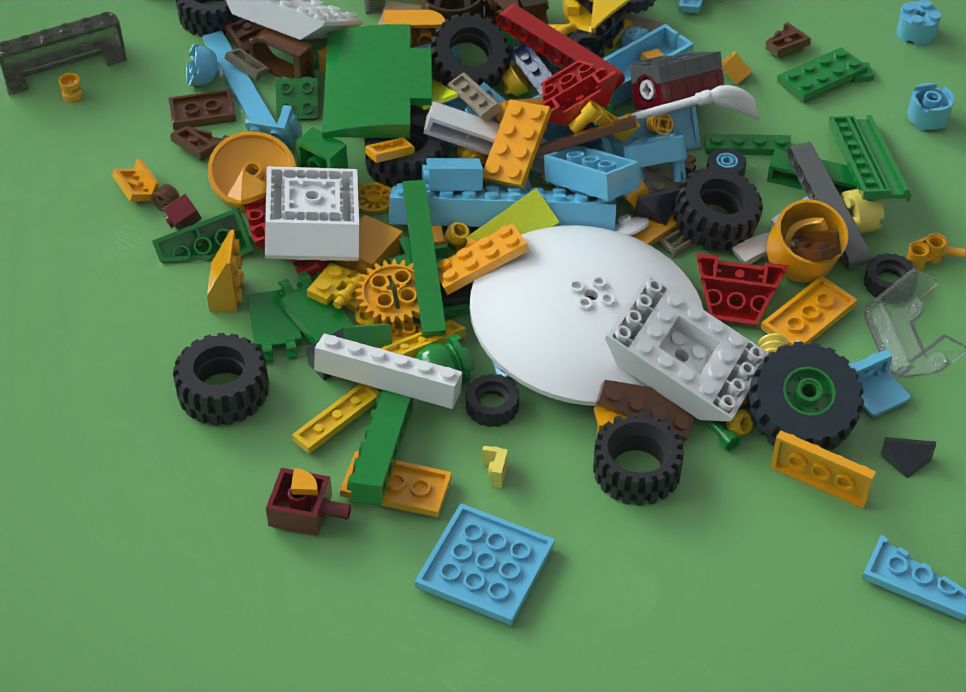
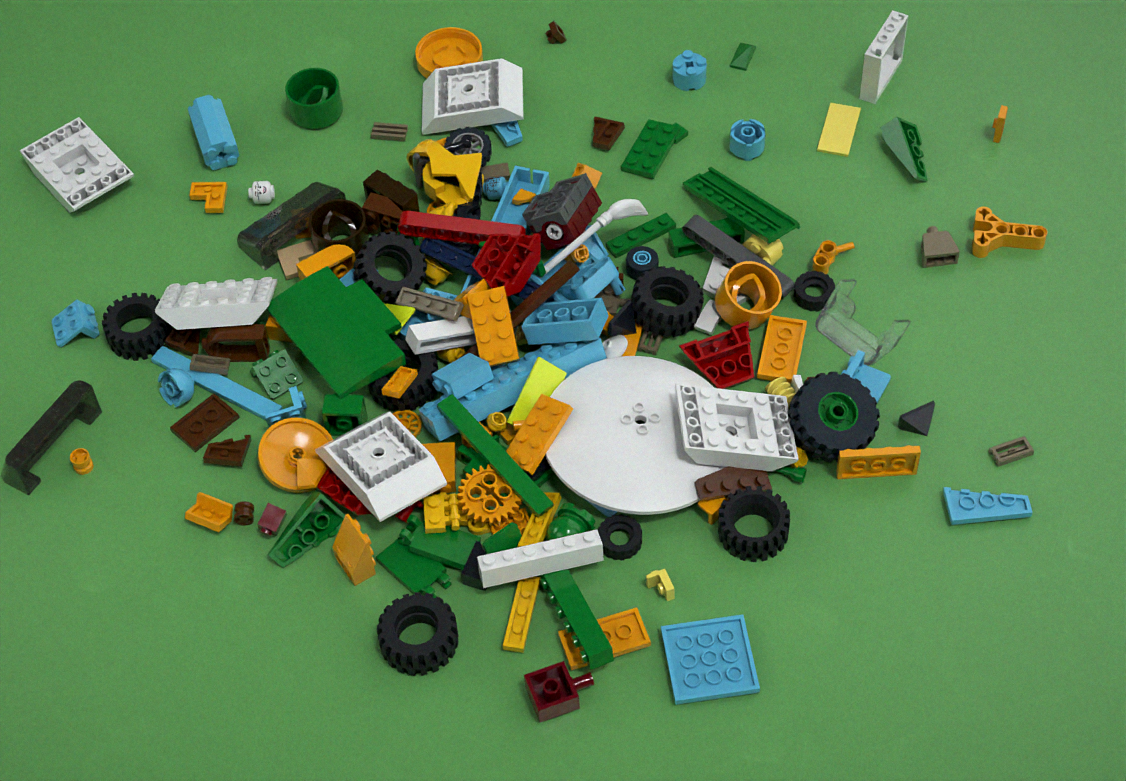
camera: 30 degrees left, 5 degrees up
(303, 483) = (551, 676): light orange tile -> none
(595, 113) = (537, 272): yellow beam -> none
(818, 244) = (762, 296): reddish brown bracket -> none

